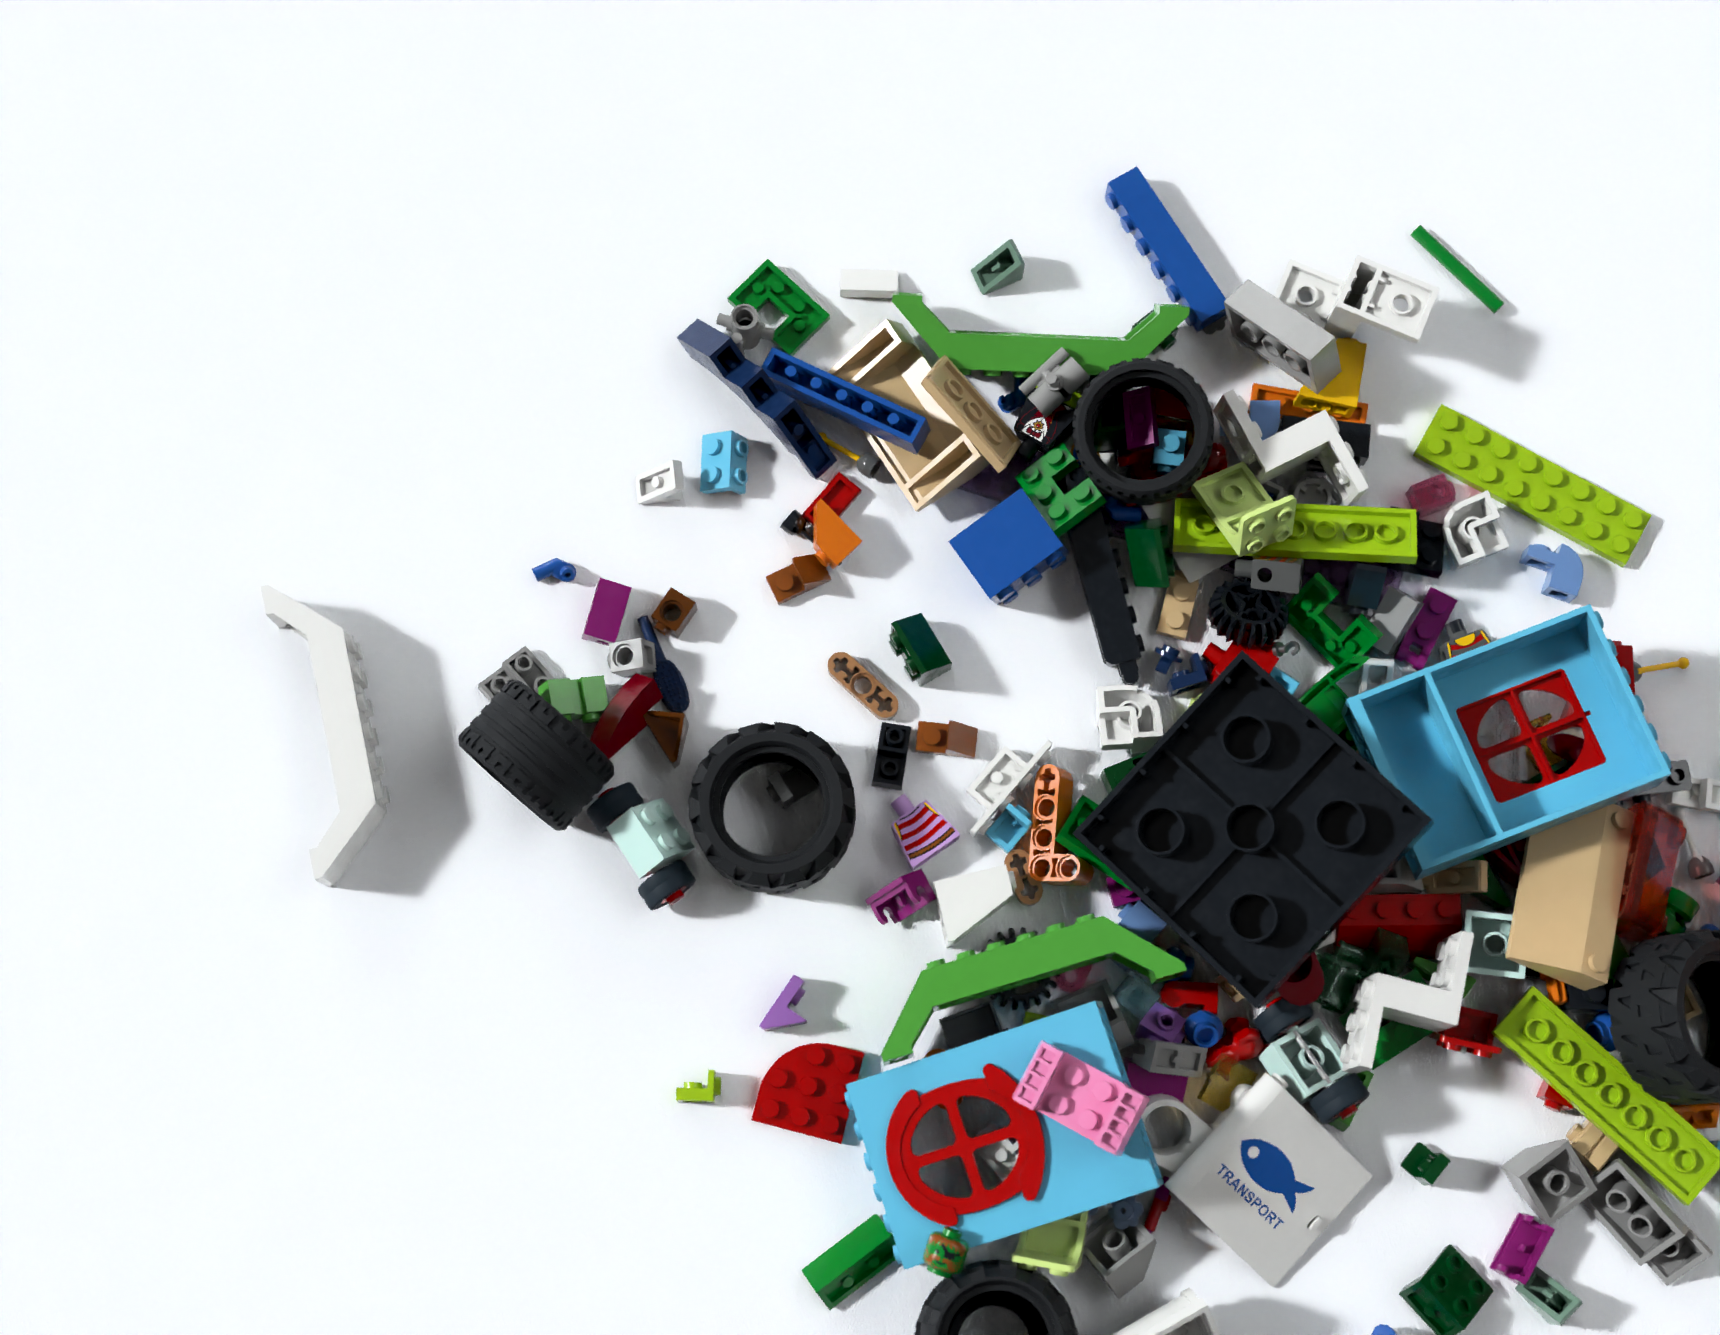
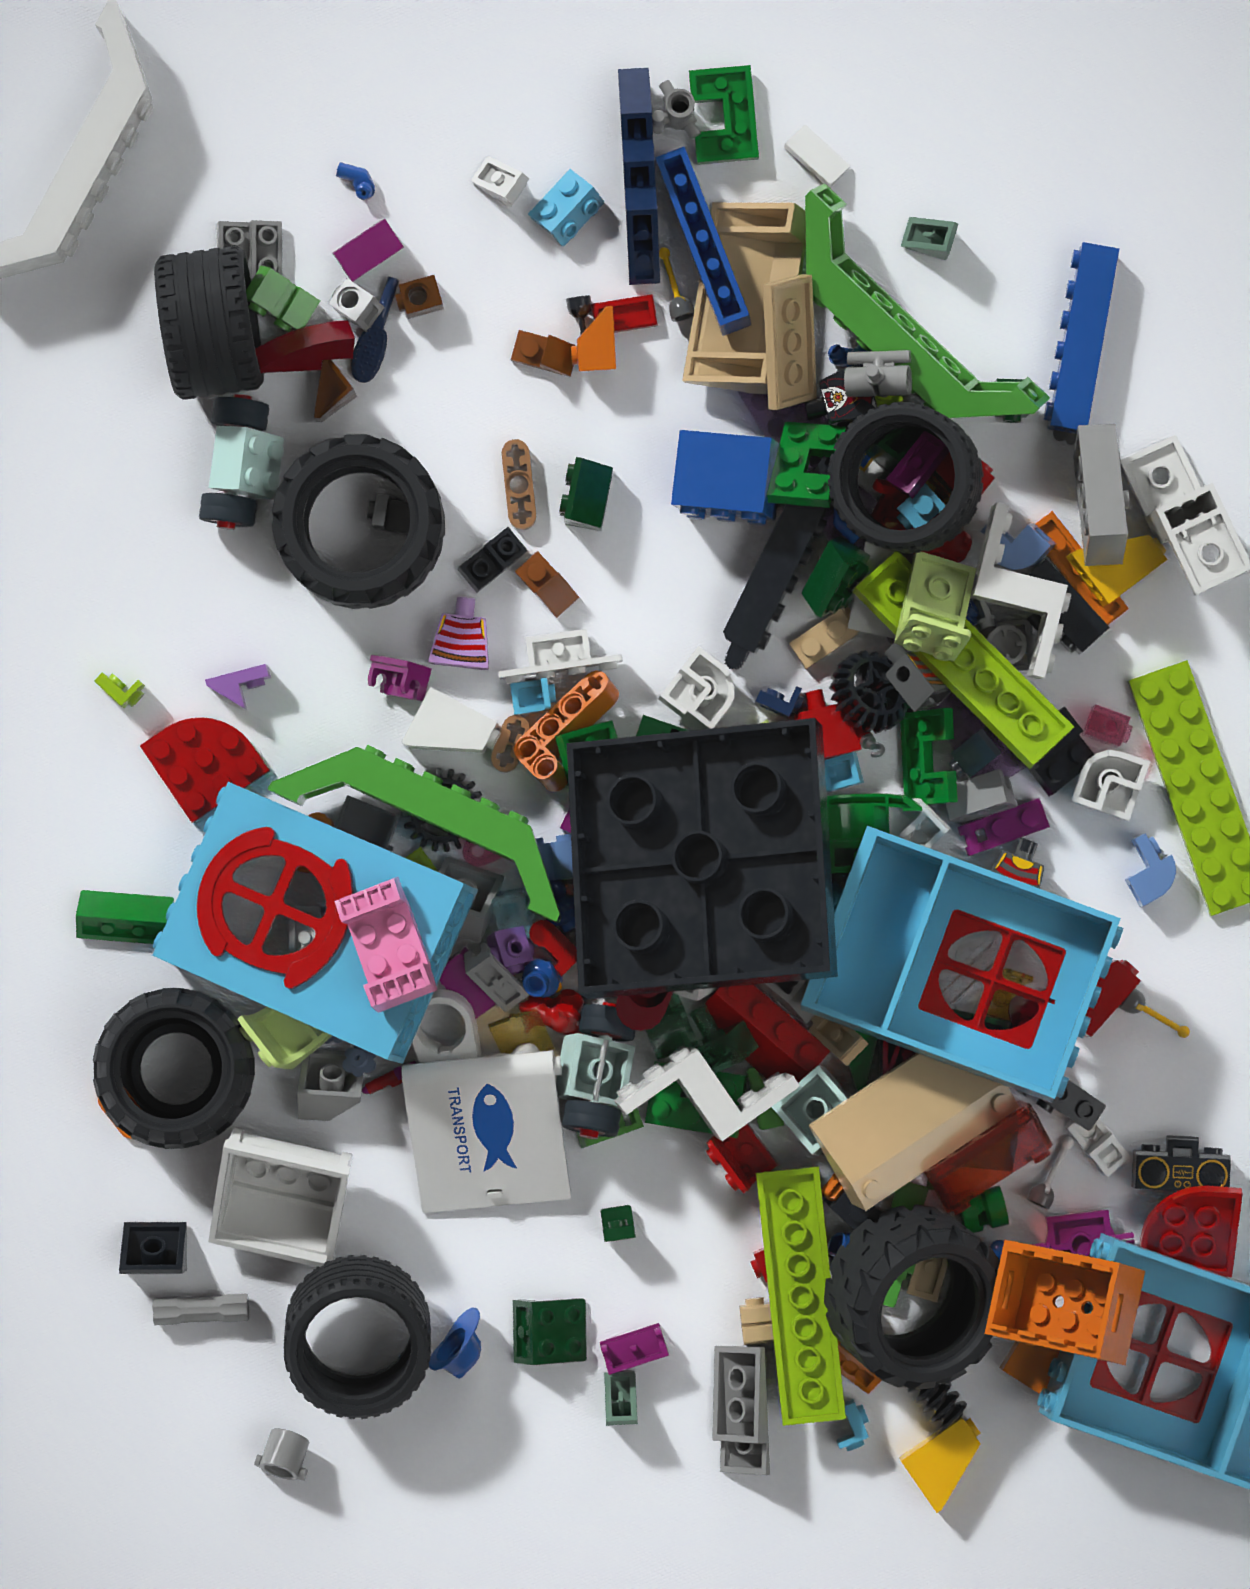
camera: 40 degrees right, 10 degrees up
(945, 1252) = (191, 969): head -> none
(1168, 655) = (780, 670): dark blue plate -> none
(1549, 1179) = (701, 1318): light grey slope -> none

